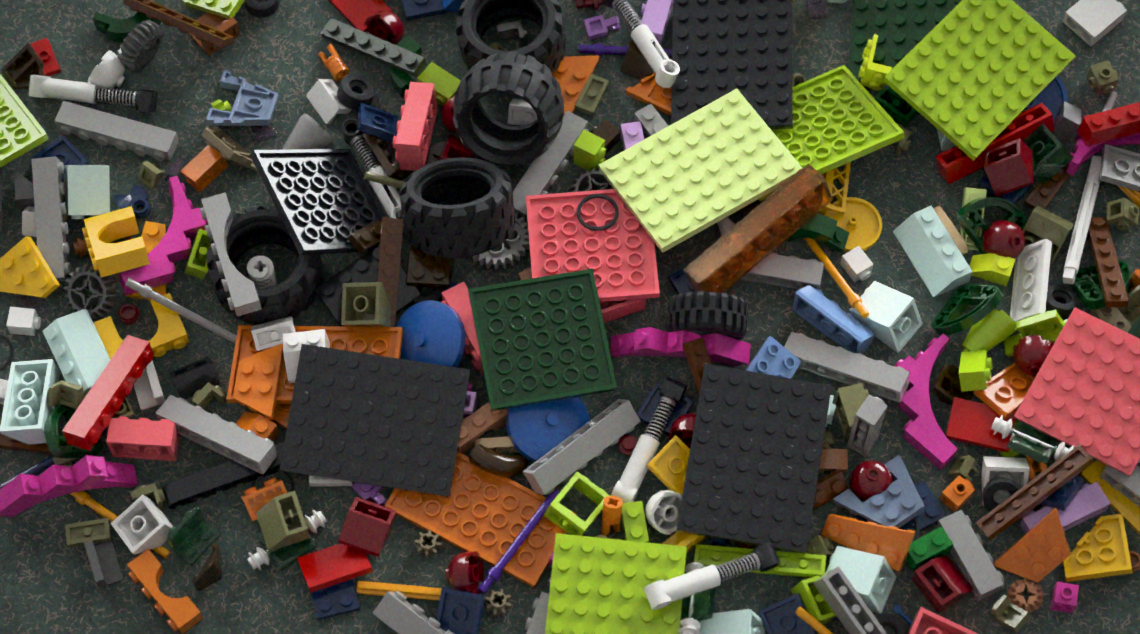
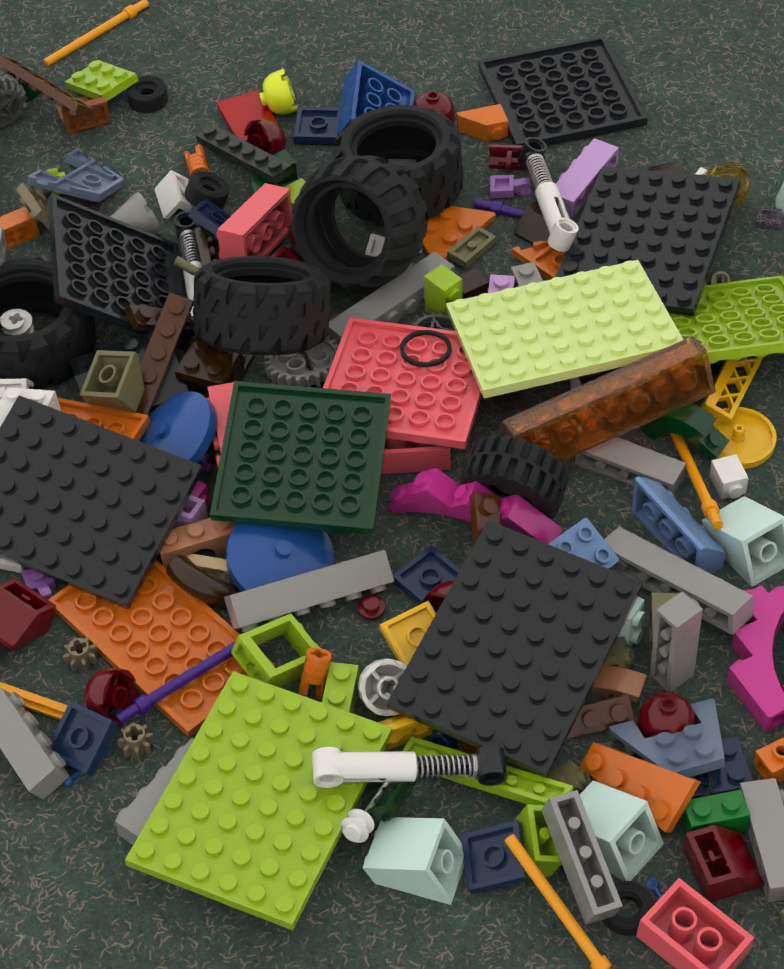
camera: 20 degrees right, 15 degrees down
(647, 445) = (441, 557): piece -> none

